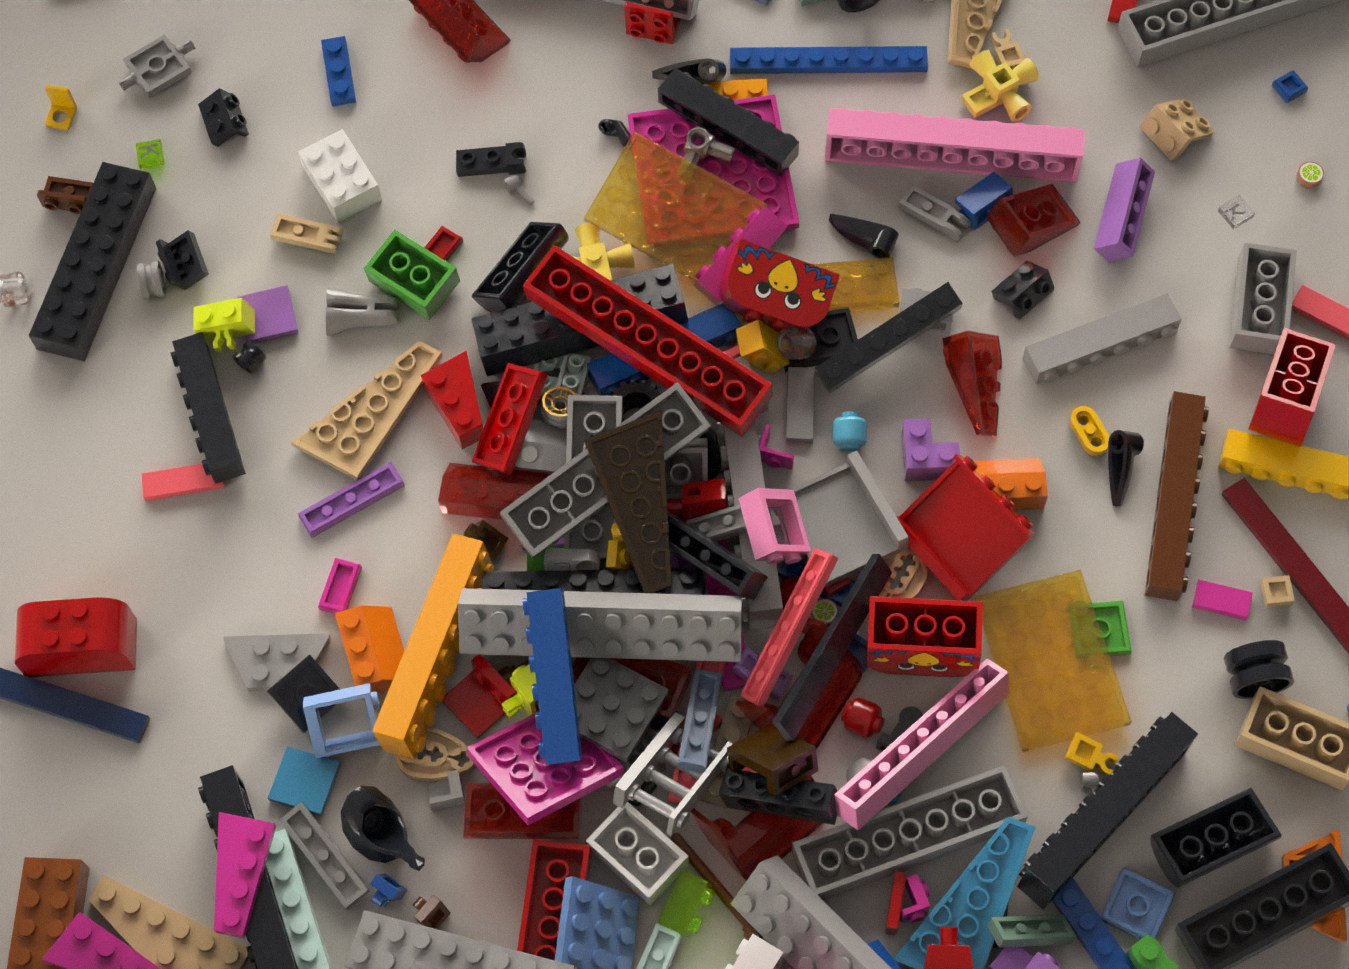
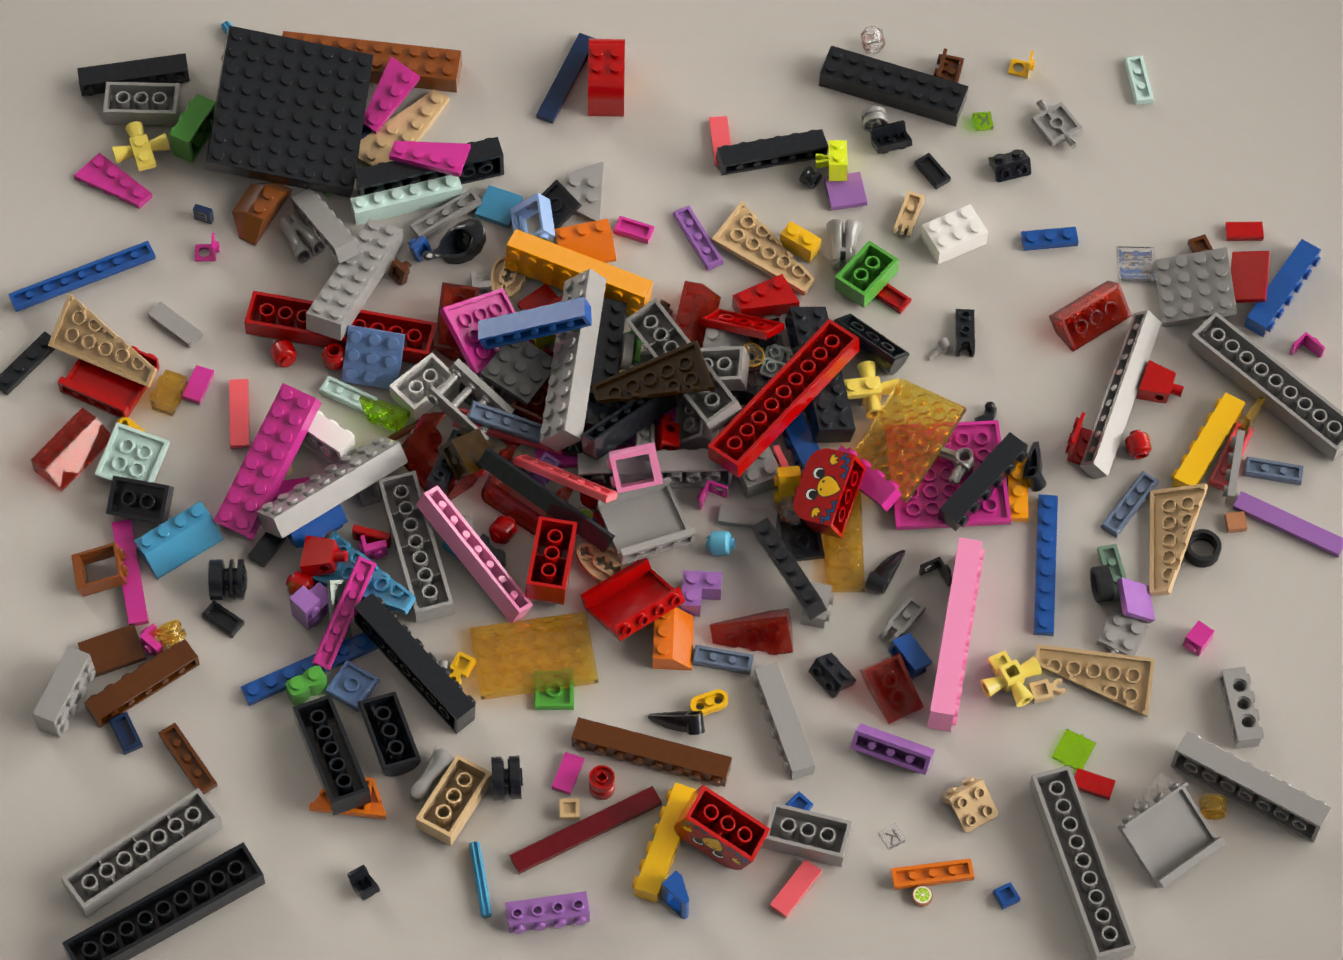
camera: 90 degrees right, 5 degrees down
(232, 211) = (932, 171): none -> black tile
(359, 361) = (800, 242): none -> yellow brick
(854, 168) = (943, 569): none -> black bracket
(1019, 421) = (722, 659): none -> sand blue tile
(1043, 919) = (344, 613): none -> dark pink tile
(1081, 24) = (1073, 750): none -> clear neon green piece
(1213, 318) = (800, 801): none -> blue tile
(1235, 550) = (601, 782): none -> red wheel
(1254, 767) = (437, 767): none -> light grey piece
(1281, 163) = (932, 874): none -> orange plate

